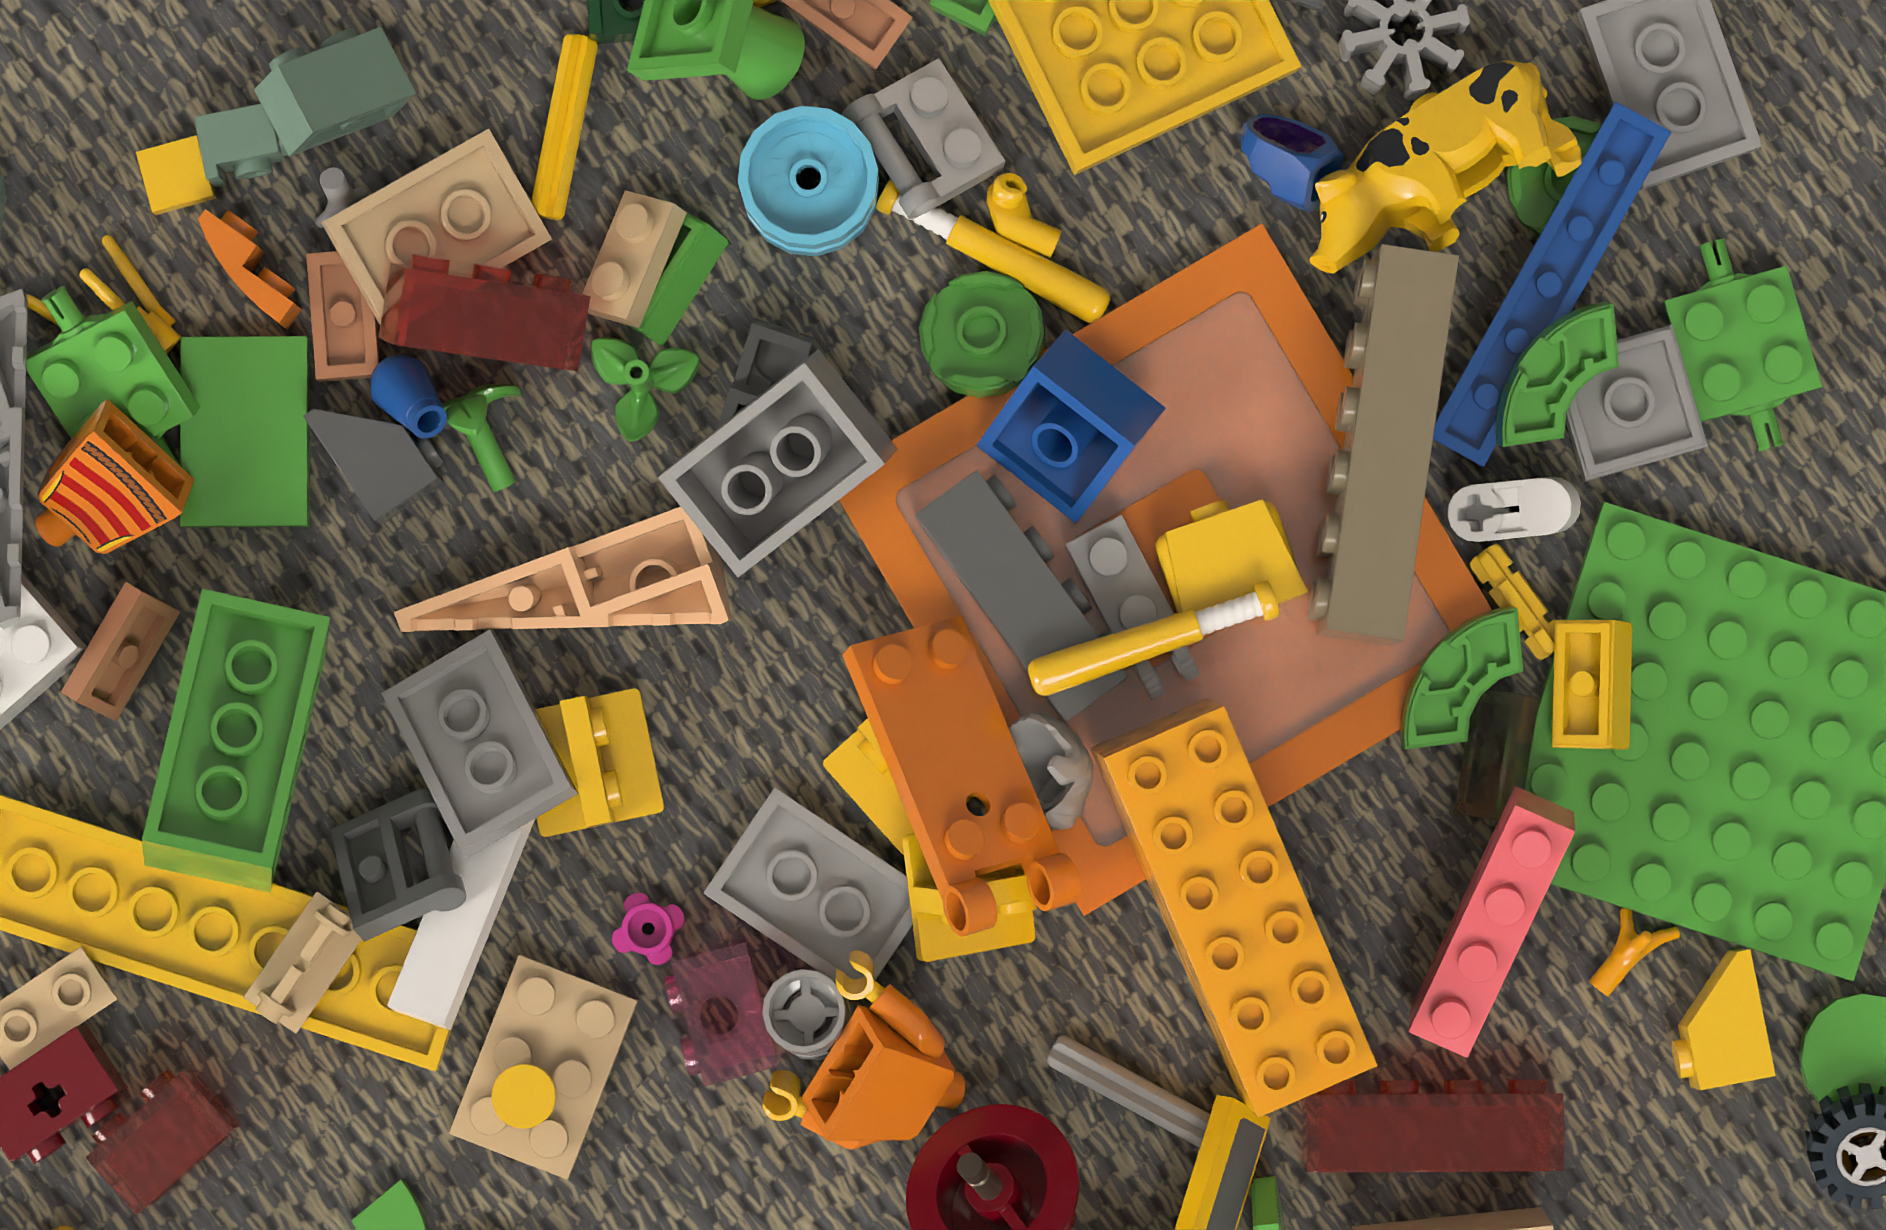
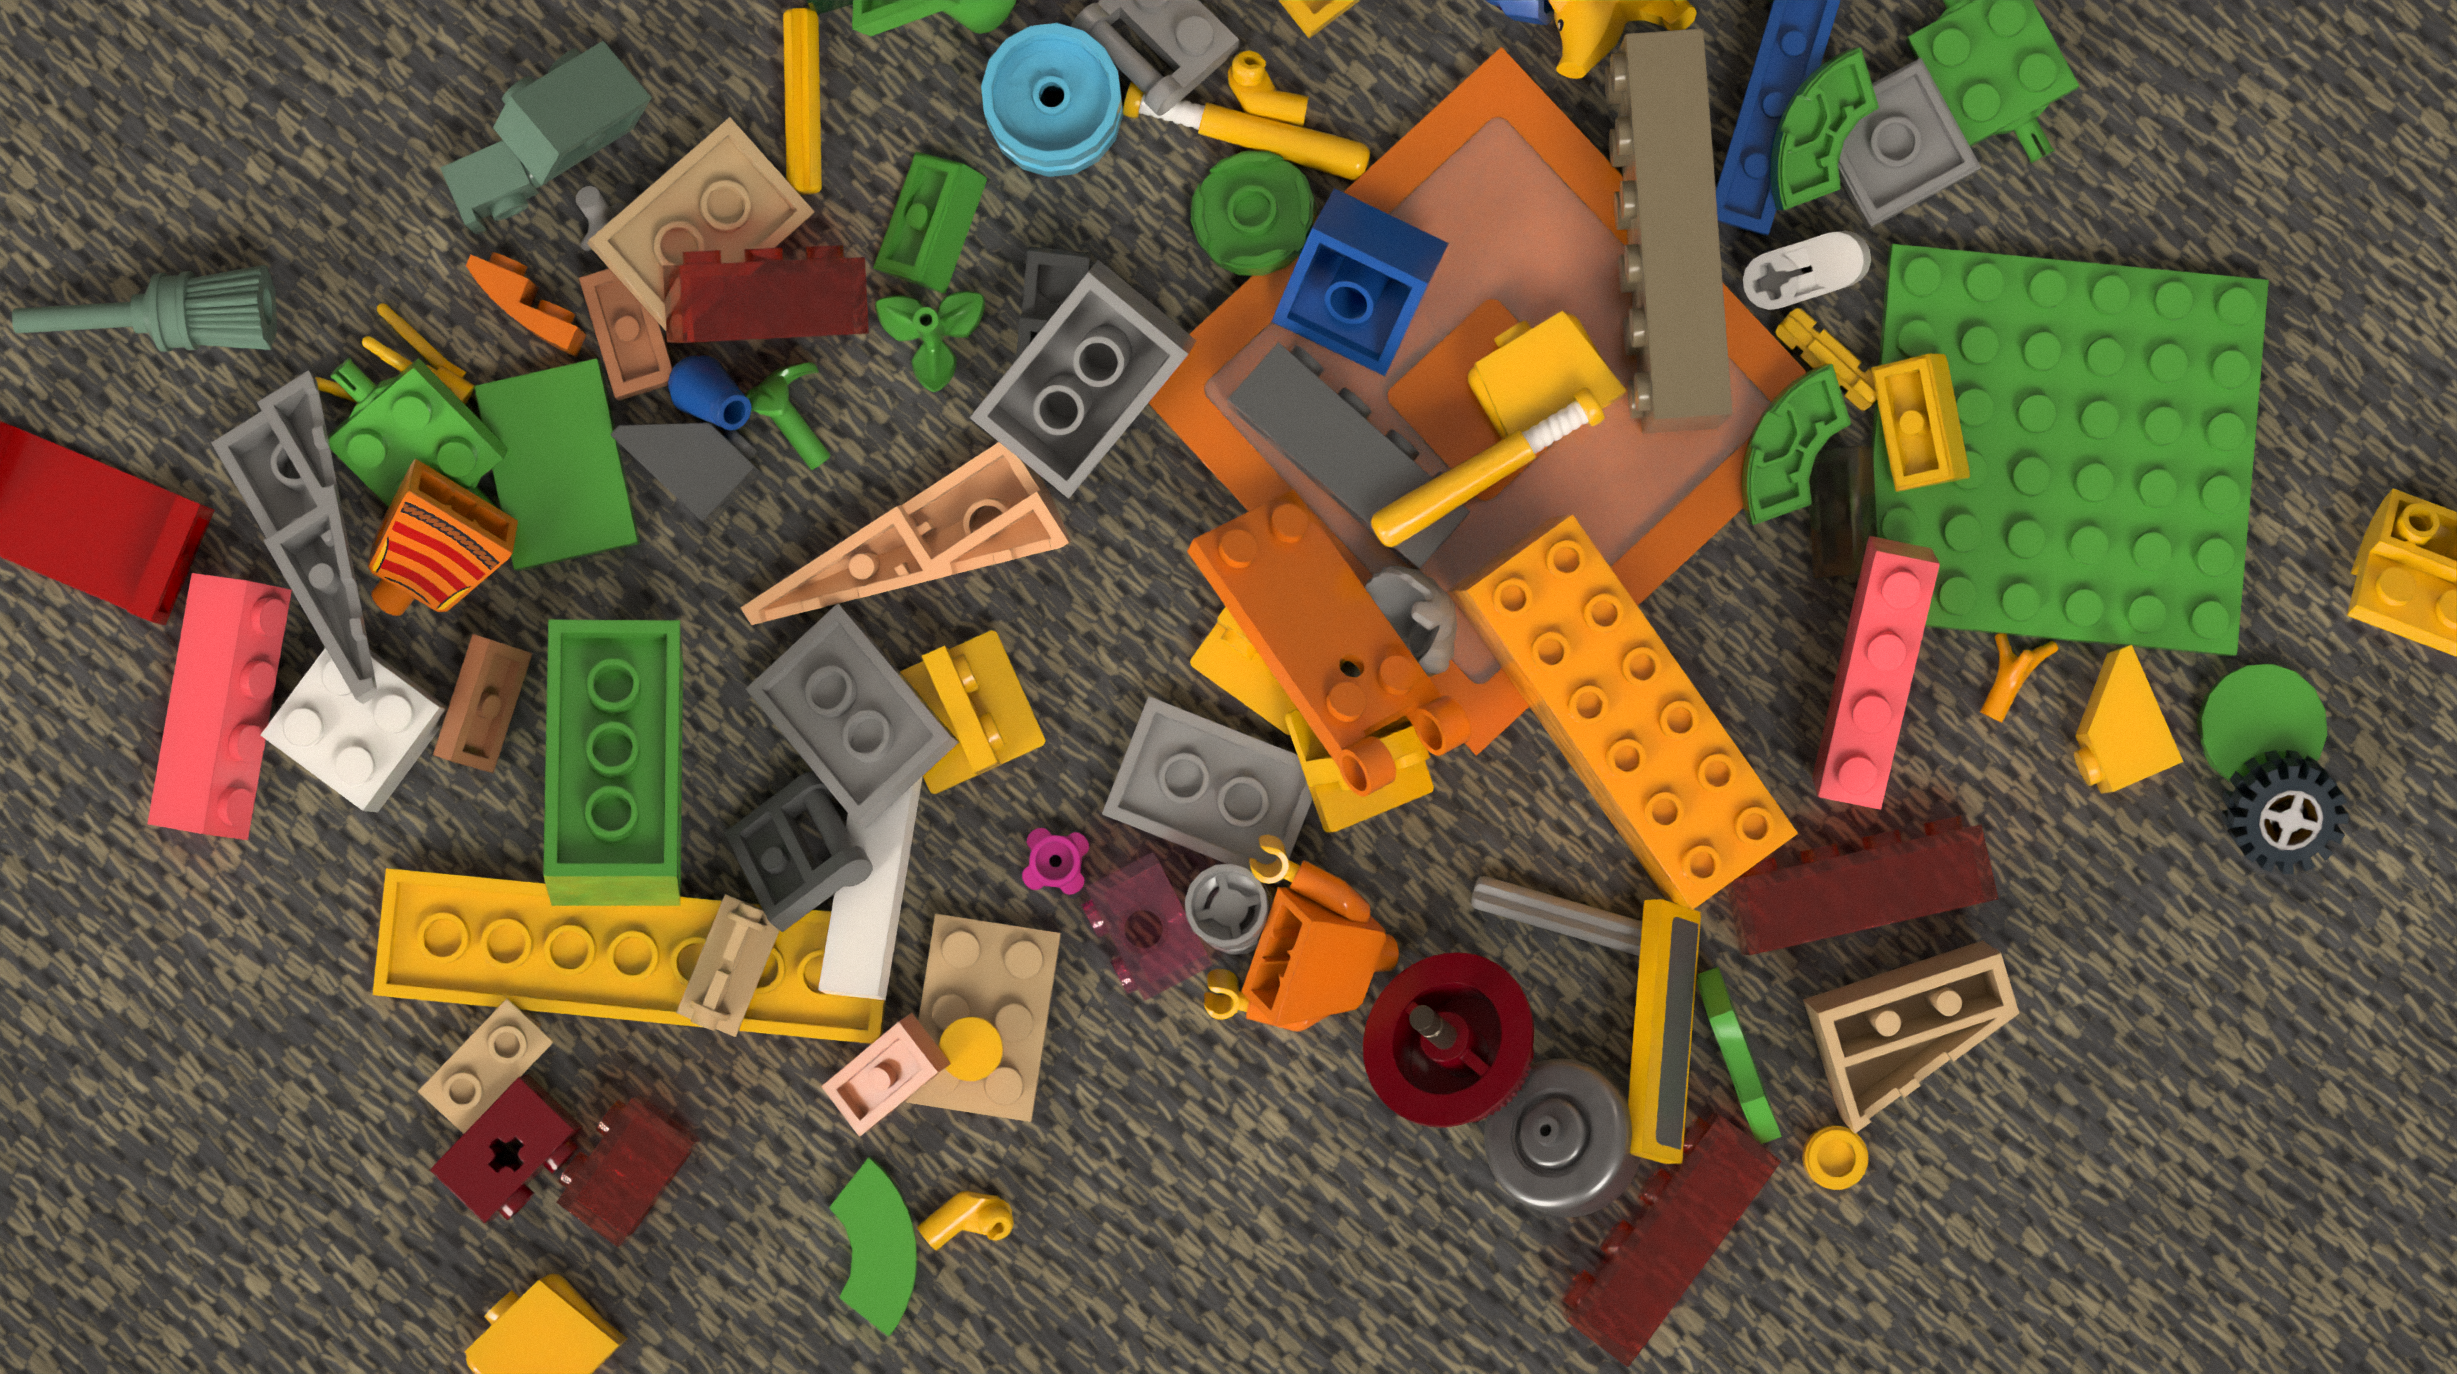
camera: 10 degrees left, 0 degrees up
(174, 175) = (434, 230): yellow tile -> none
(435, 1102) = (885, 1074): none -> plate
(633, 258) = (898, 213): tan plate -> none
(1125, 591) = (1448, 431): light grey hinge -> none

